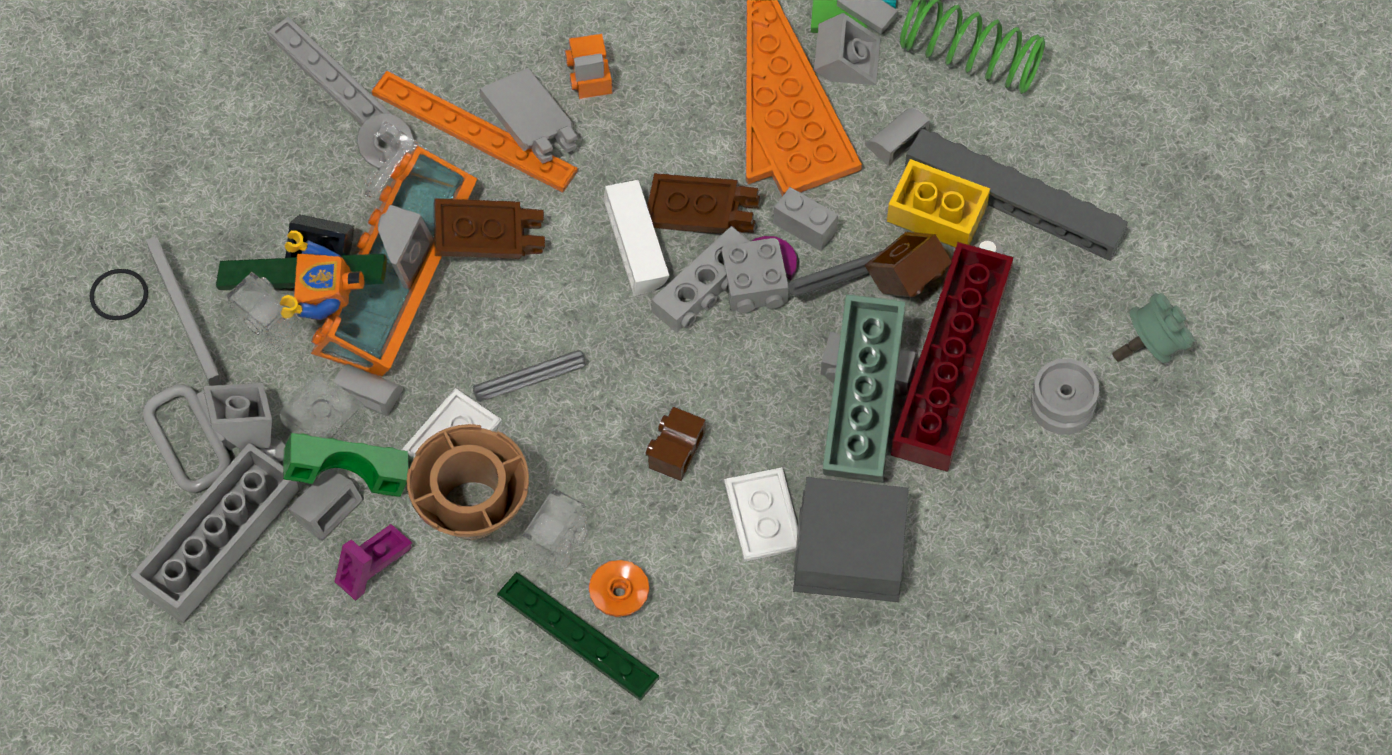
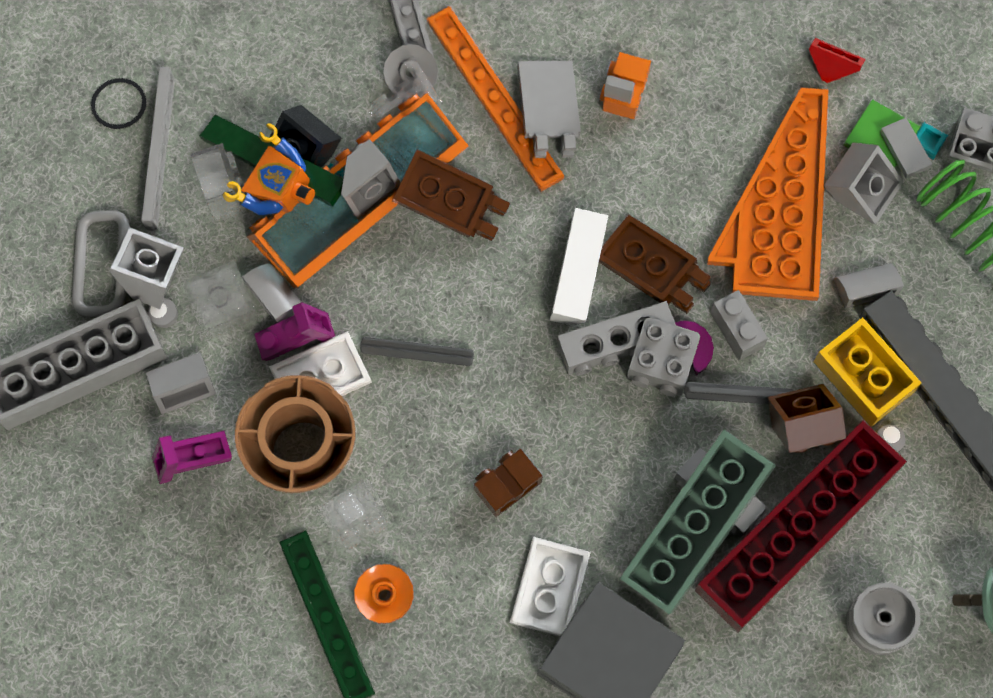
camera: 30 degrees right, 10 degrees up
(379, 467) = (180, 338): green arch -> none
(406, 410) = (301, 328): none -> magenta bracket

